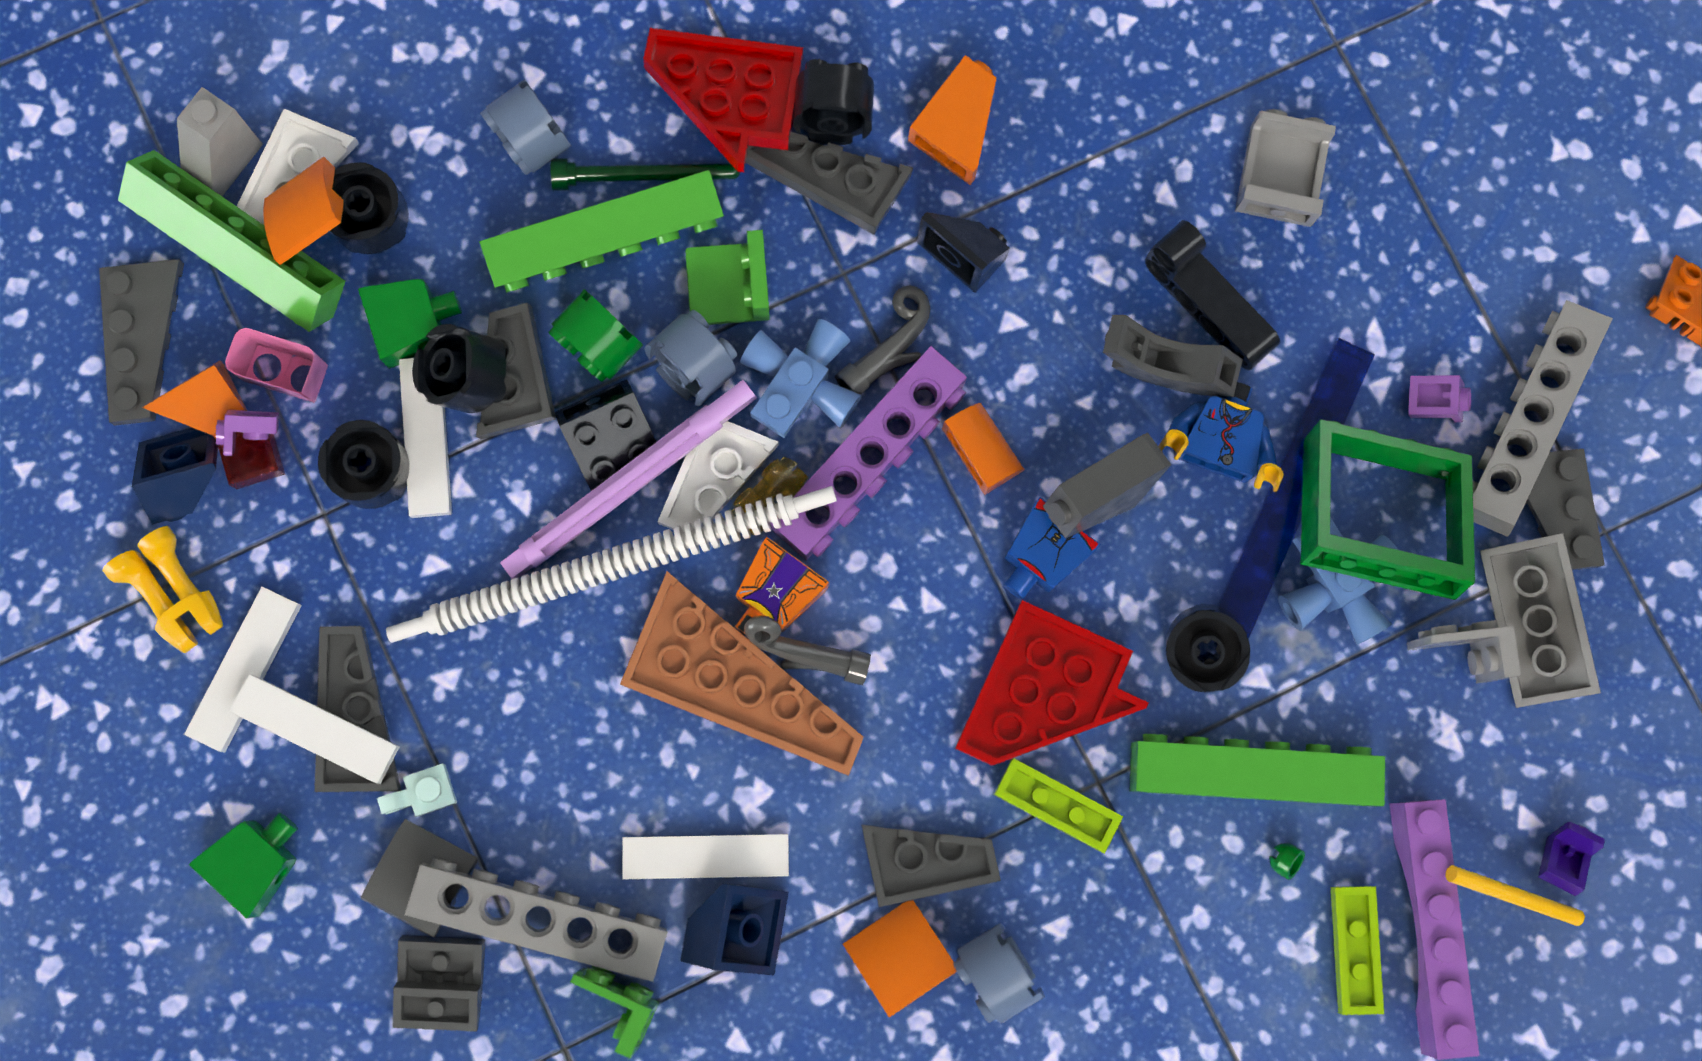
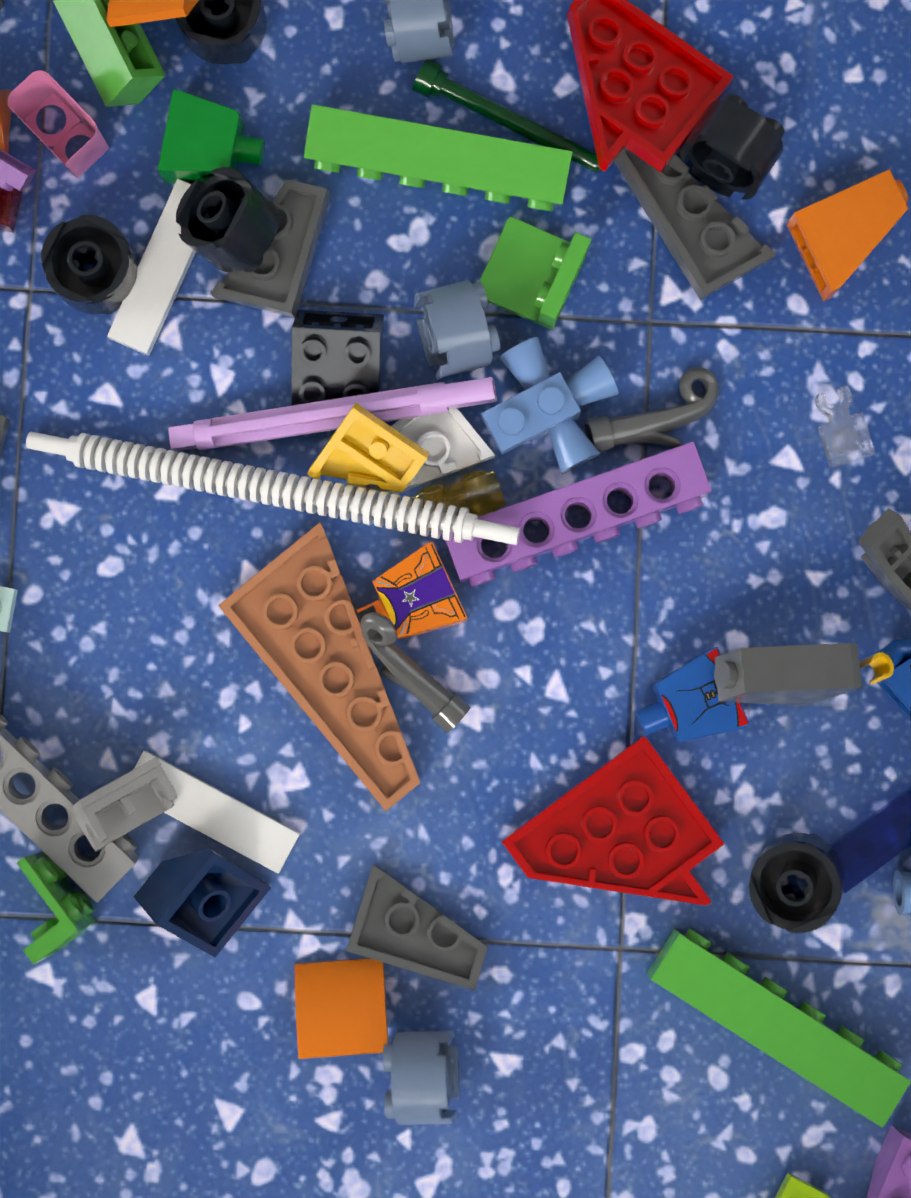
camera: 40 degrees right, 5 degrees up
(596, 334) = (374, 257): green brick -> none
(632, 886) = (124, 804): none -> light grey hinge
(676, 493) = (369, 453): none -> yellow wing
(963, 247) = (781, 361): black slope -> none
(982, 447) = (689, 567): orange brick -> none
(1045, 279) = (844, 436): none -> clear plate
(1058, 805) = (569, 950): lime plate -> none
(1288, 860) = (760, 1125): green hinge -> none

